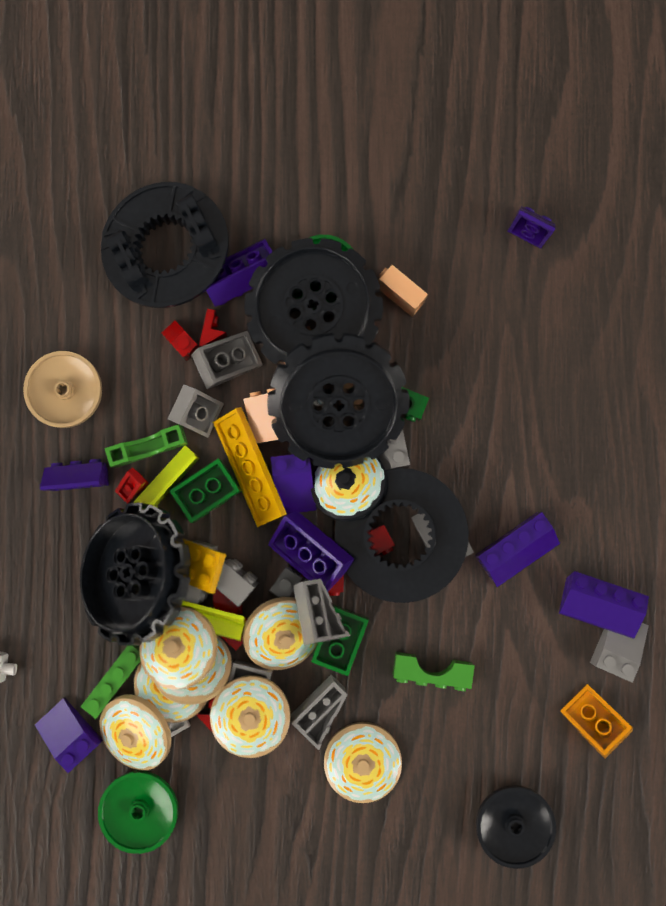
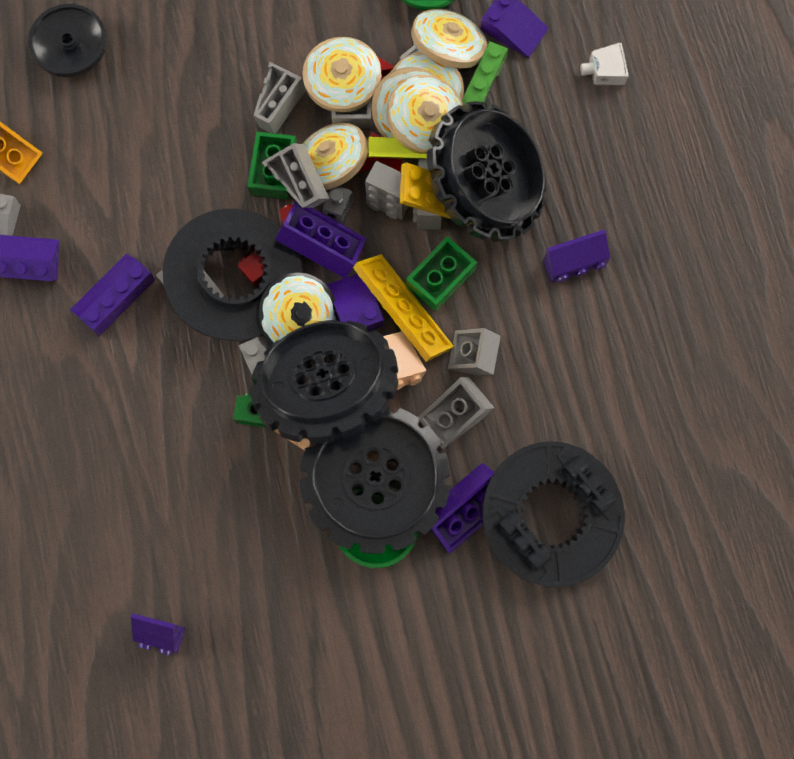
camera: 165 degrees right, 10 degrees down
(62, 389) = (616, 339): tan dish -> none
(131, 485) = (518, 264): red slope -> none
(146, 447) = (525, 297): bright green arch -> none
(168, 477) = (484, 278): neon yellow panel -> none
(180, 340) = (510, 421): red slope -> none
(208, 334) = (480, 433): red slope -> none
(362, 762) = (226, 65): dish -> none
(401, 290) = (286, 525): light nougat brick -> none
(457, 674) = (150, 161): bright green arch -> none

